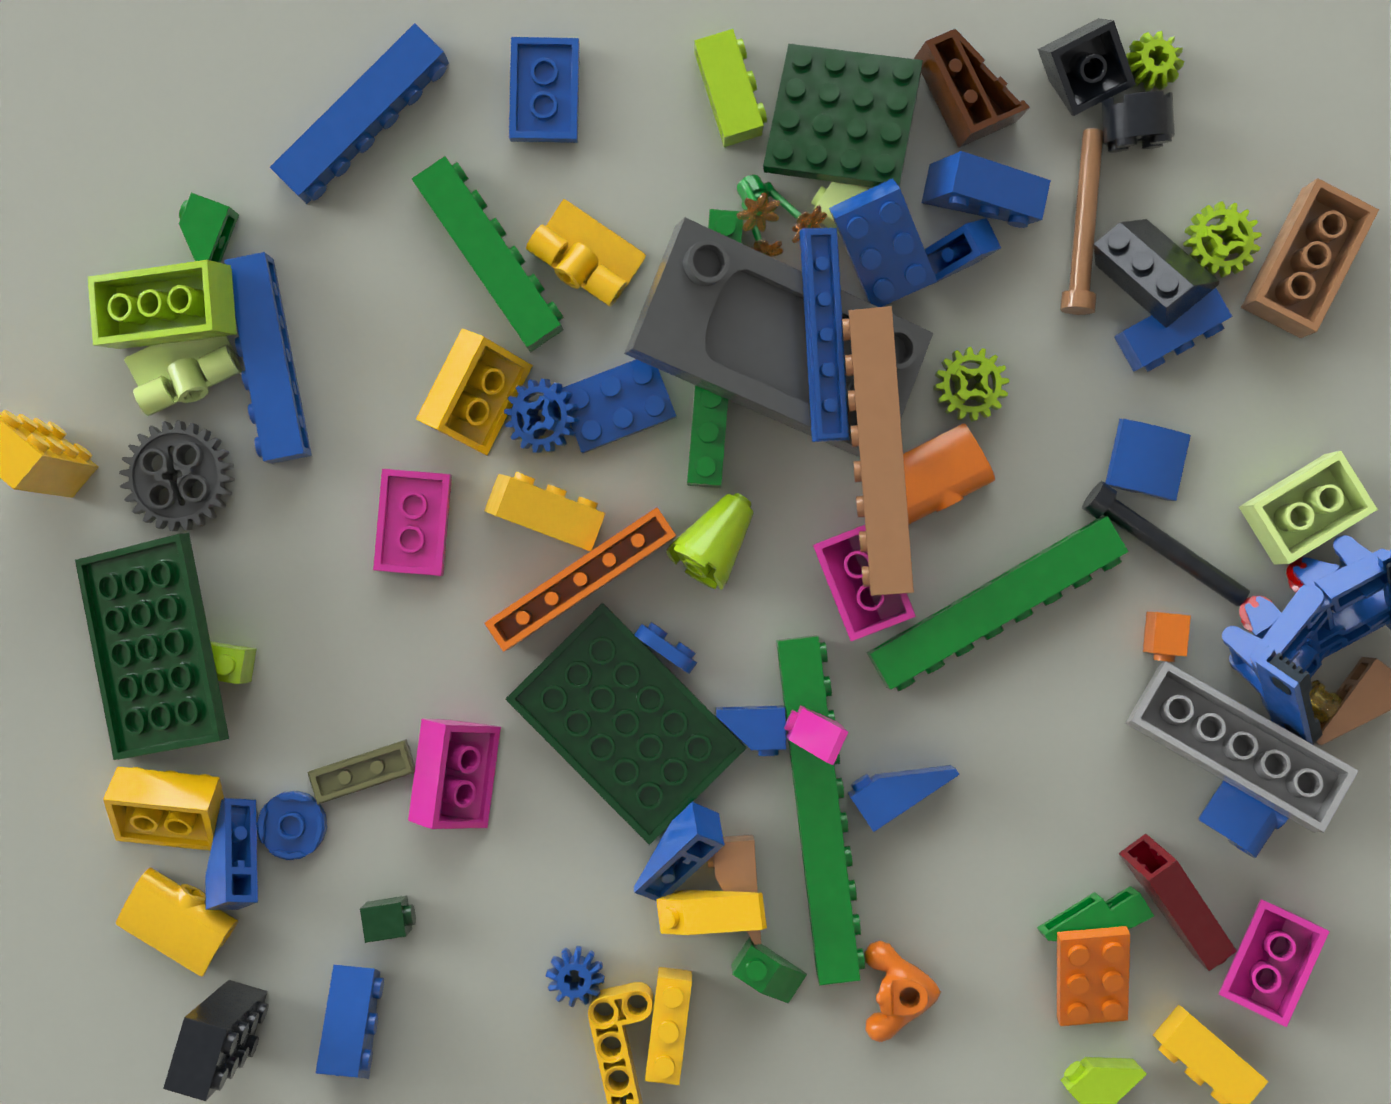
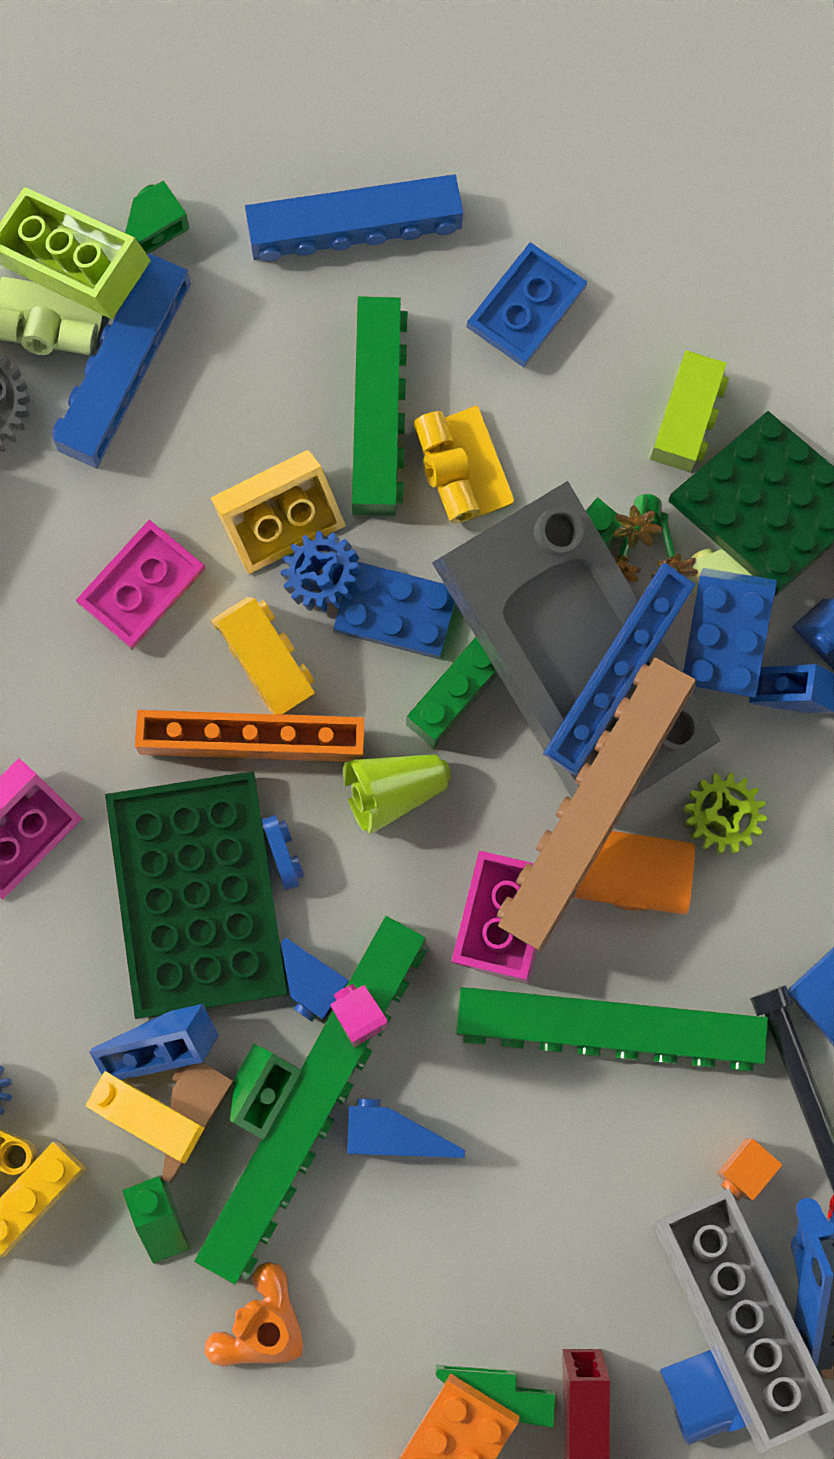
camera: 30 degrees right, 10 degrees down
(779, 831) = (261, 1090): none -> green slope

